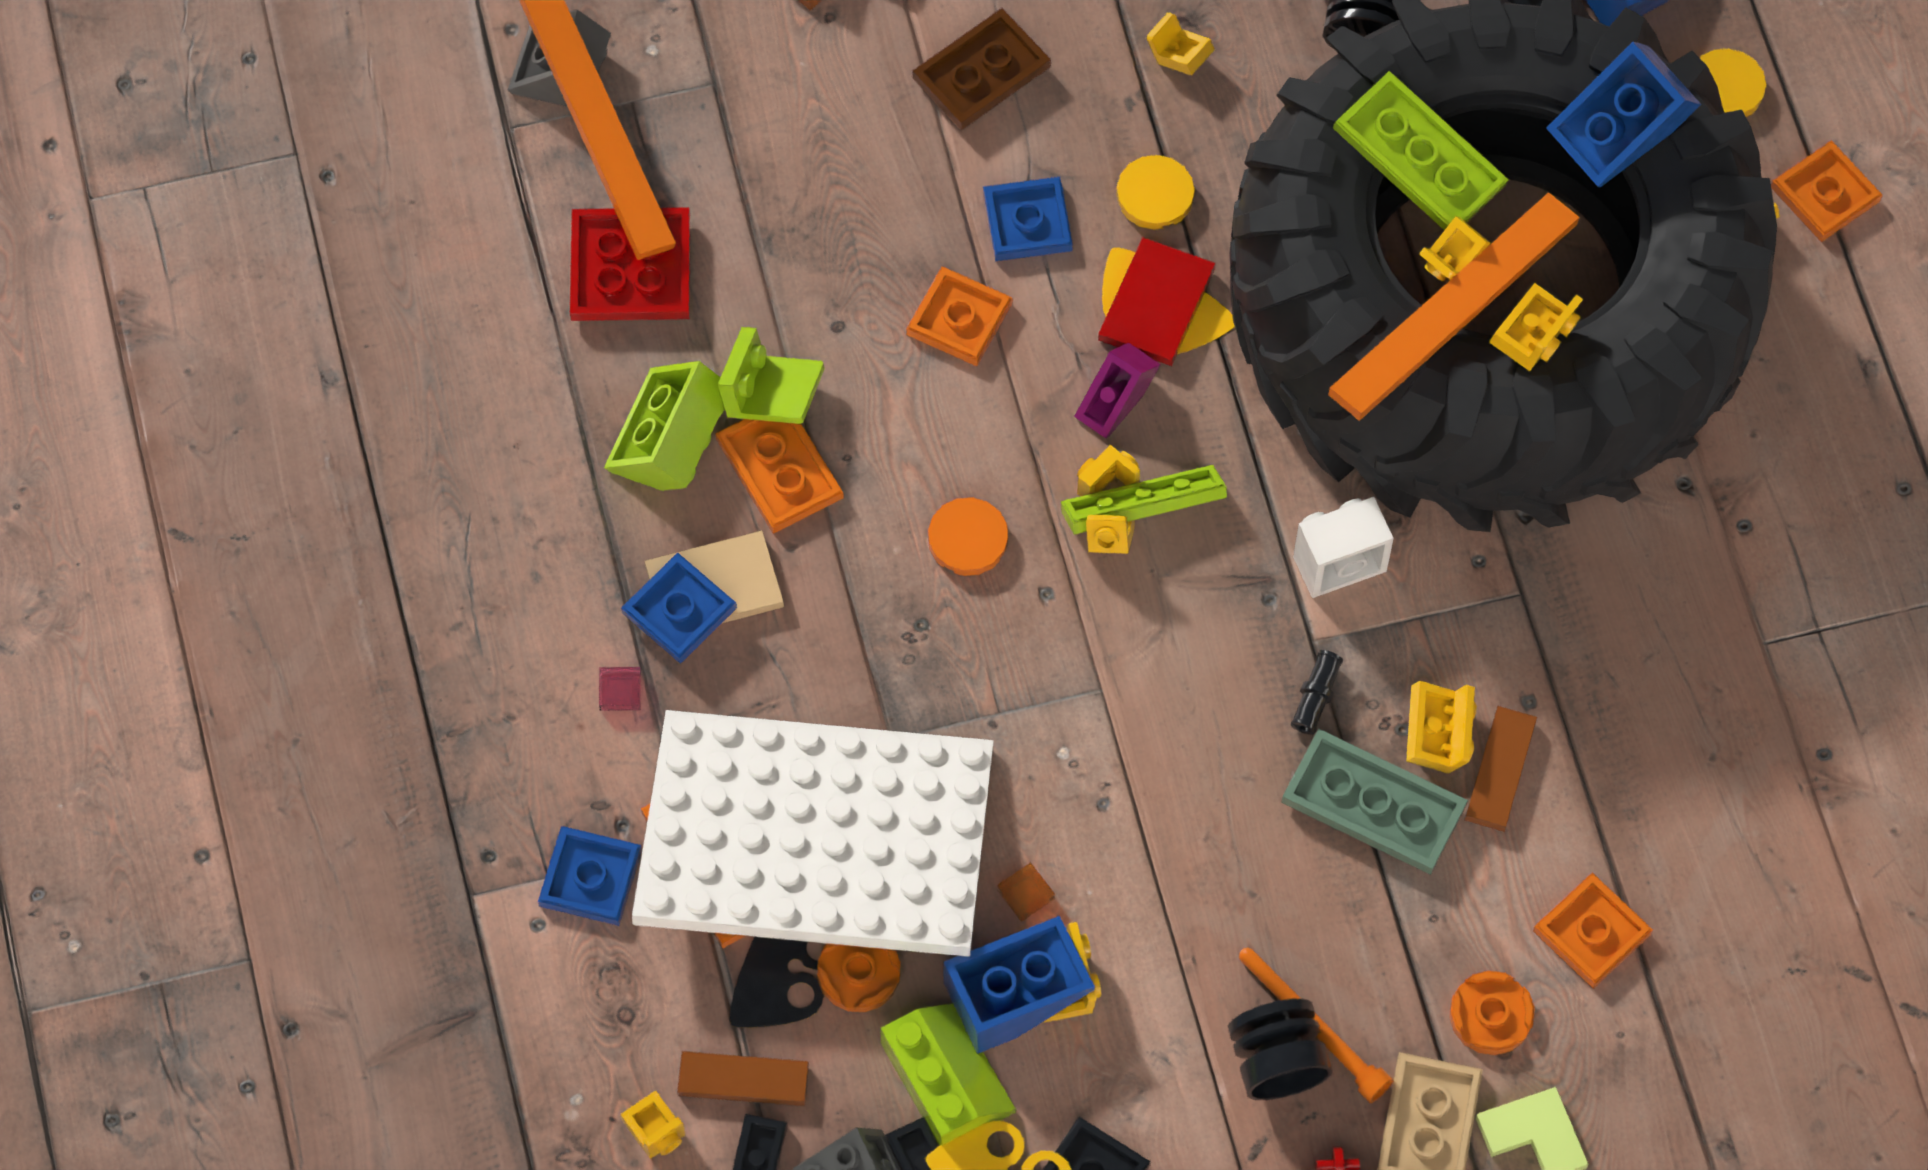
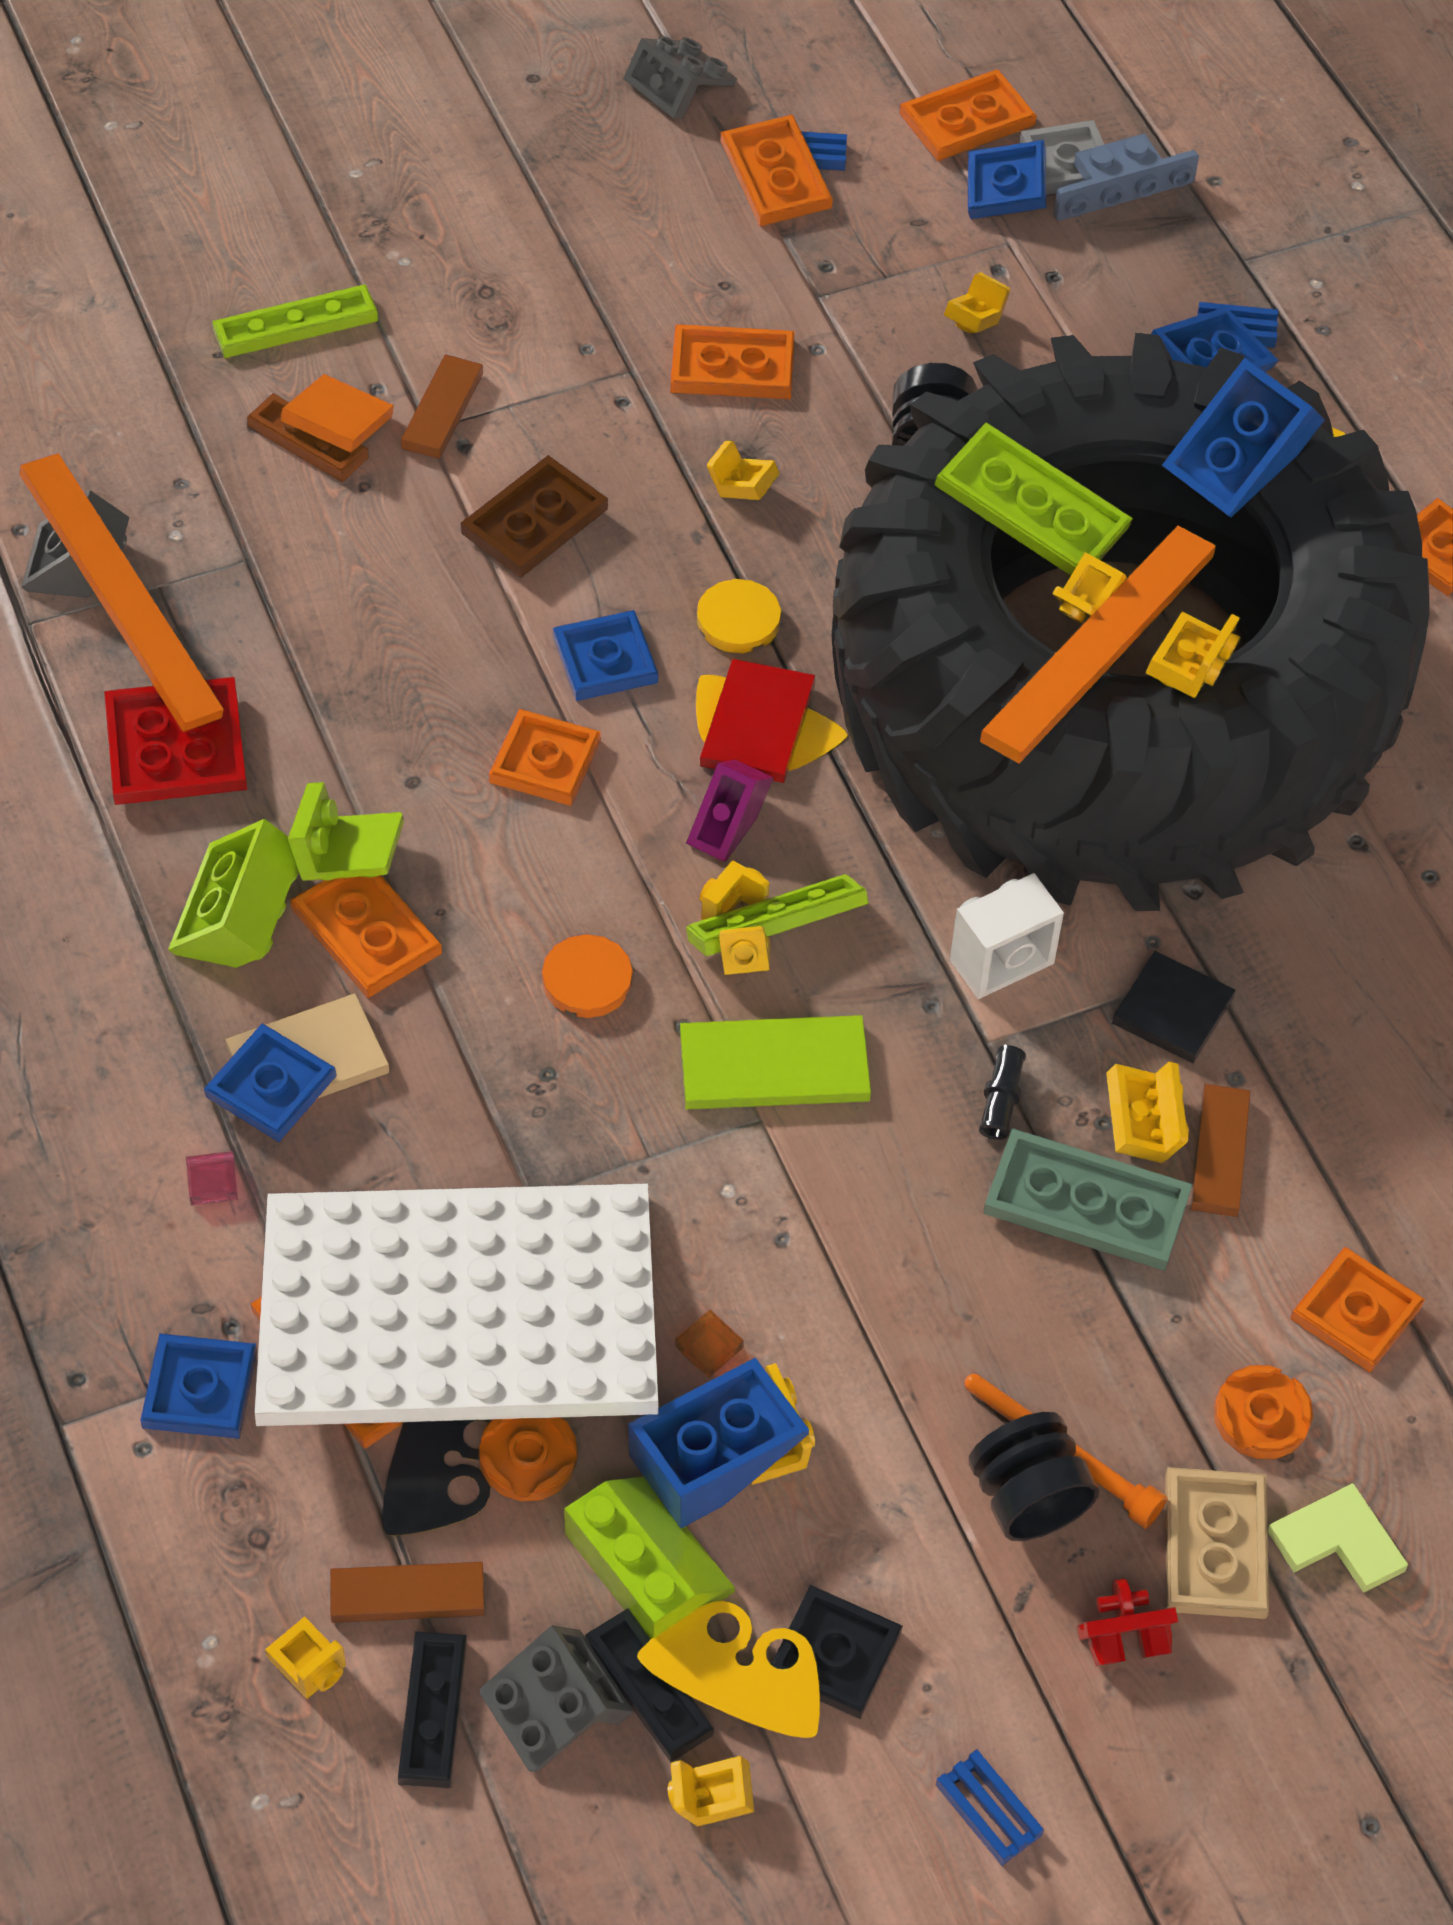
camera: 10 degrees left, 10 degrees down
(1121, 638) = (774, 1062): none -> lime tile
(1485, 627) = (1173, 1006): none -> black tile

